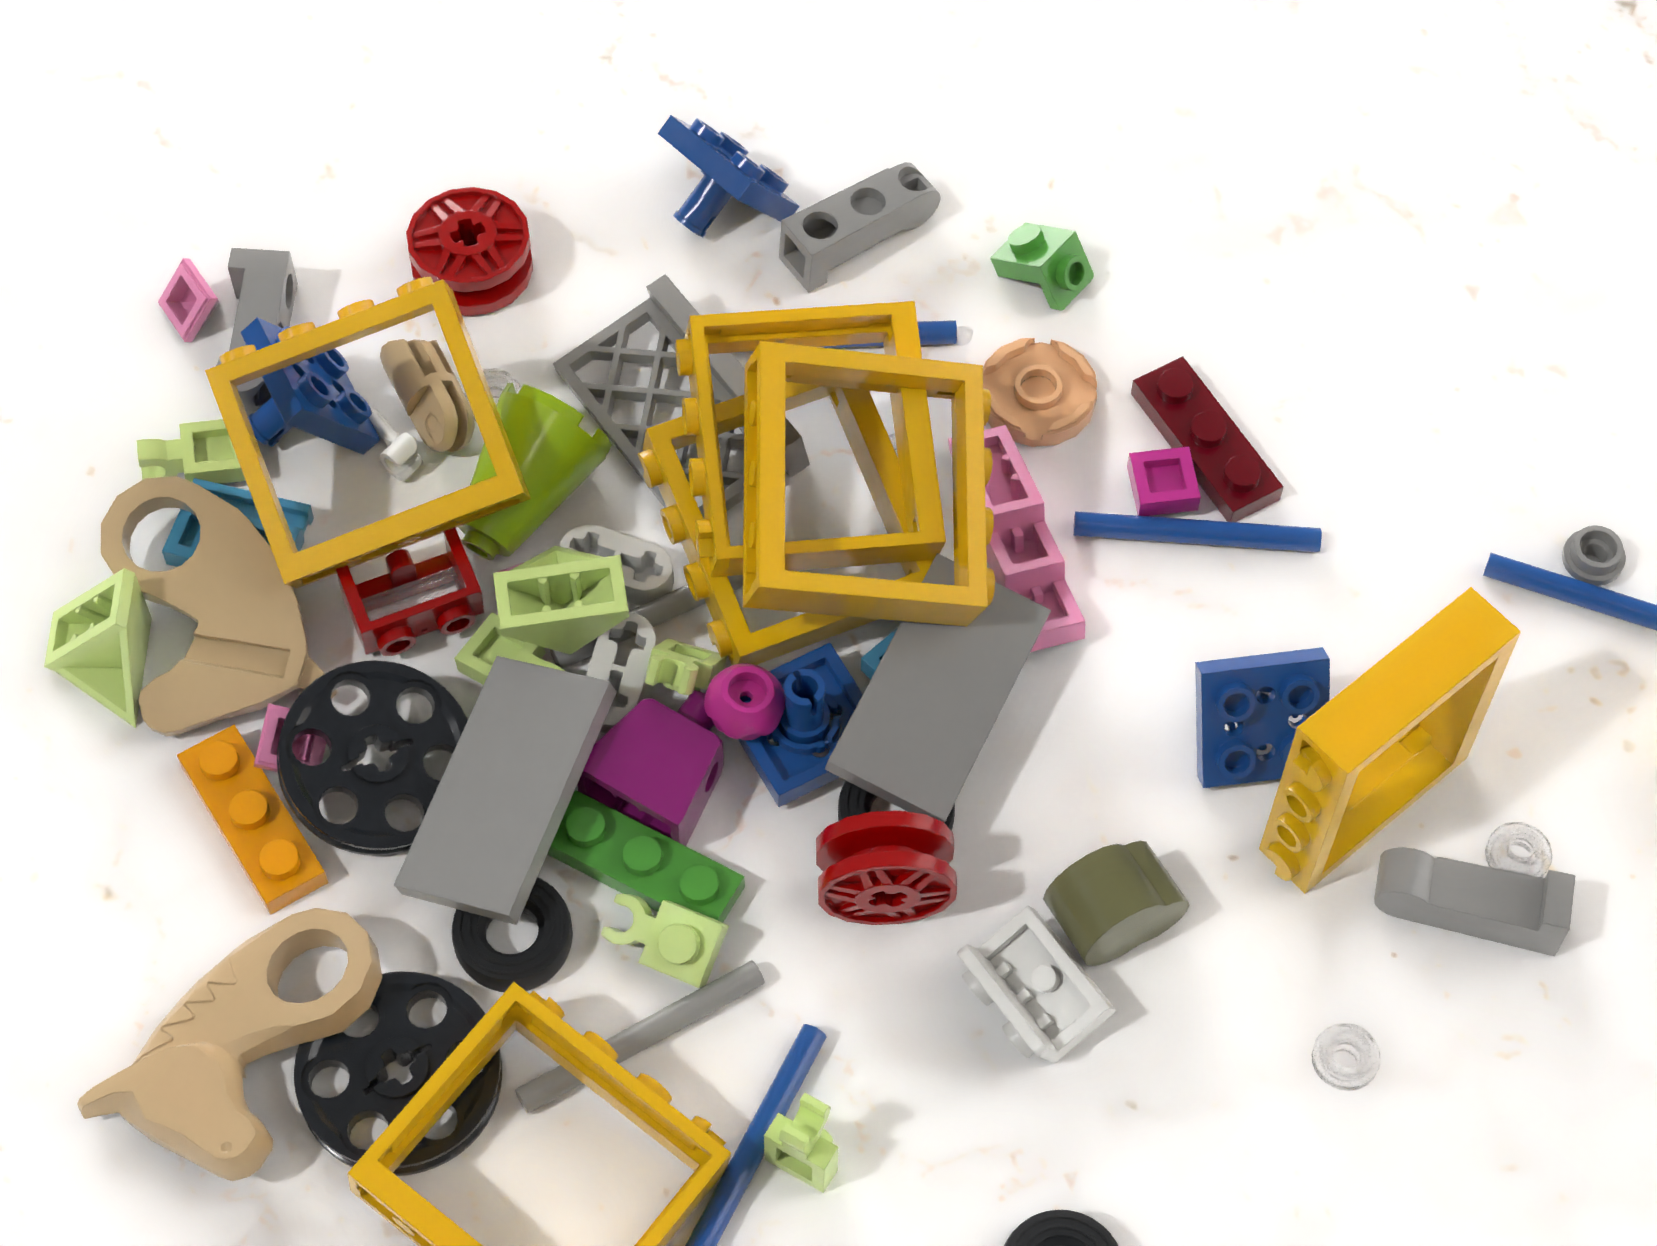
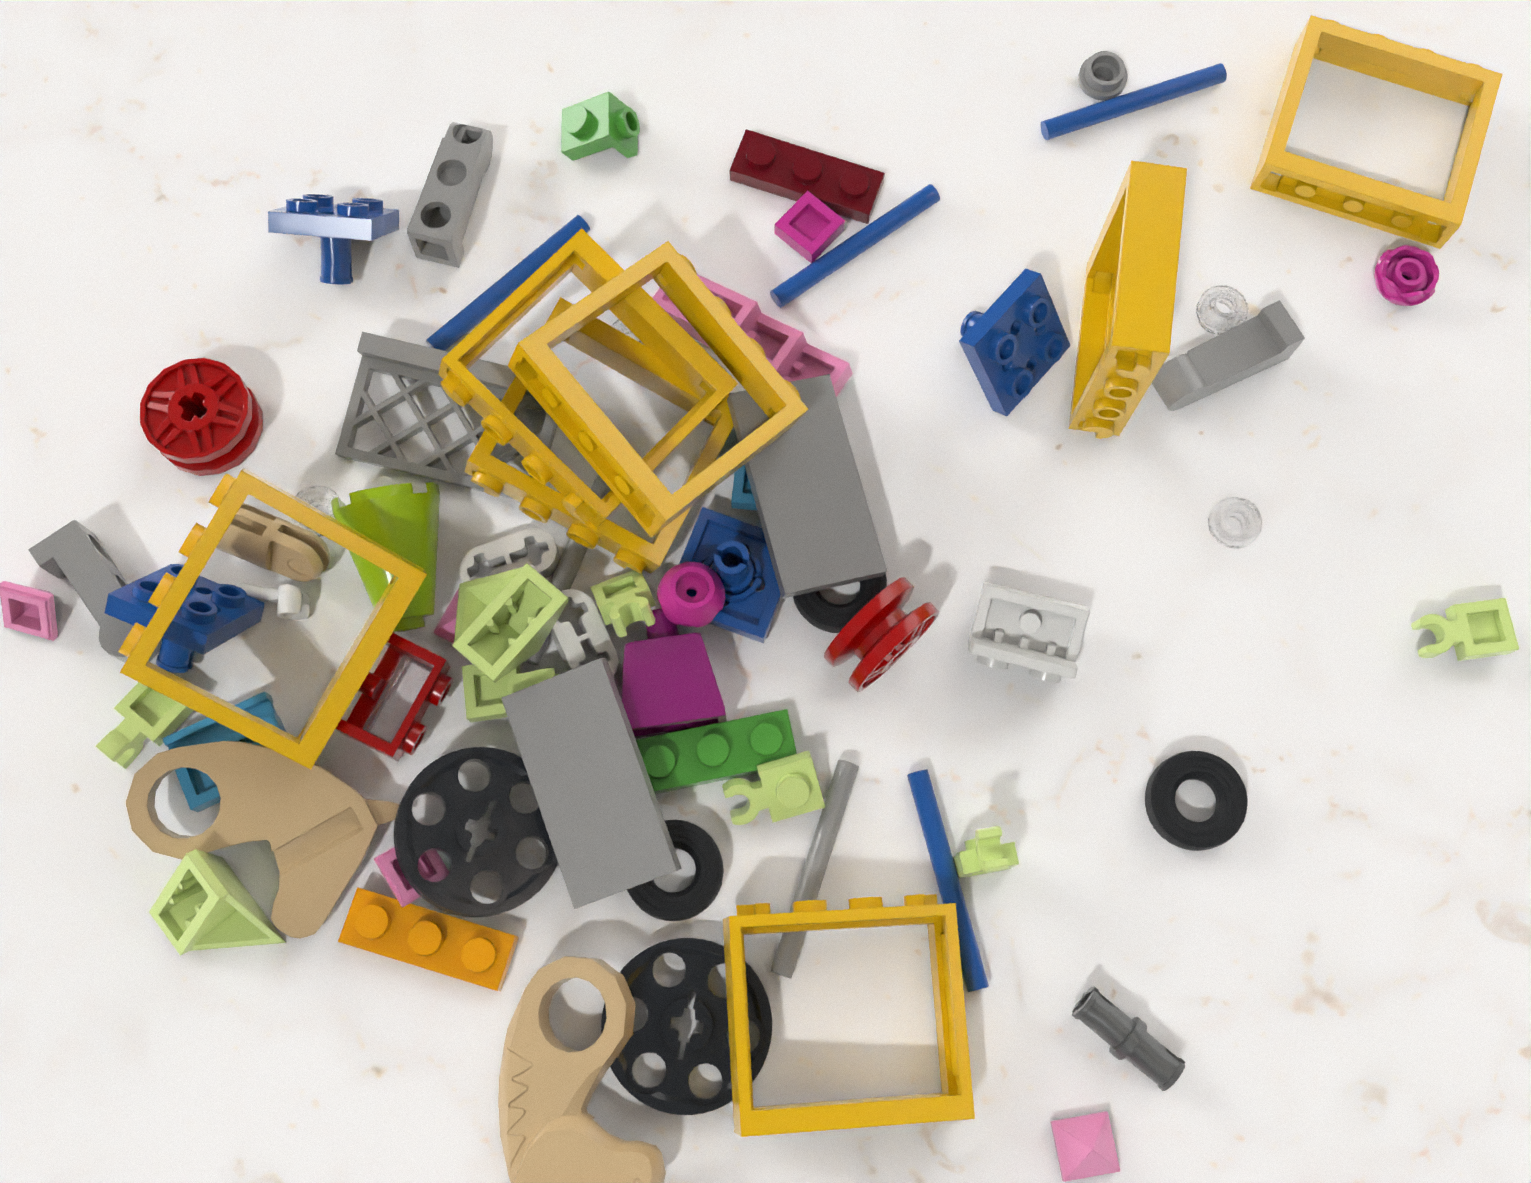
camera: 40 degrees left, 15 degrees up
(1040, 391) = (673, 212): light nougat tile -> none
(1115, 901) = (1030, 537): olive piece -> none

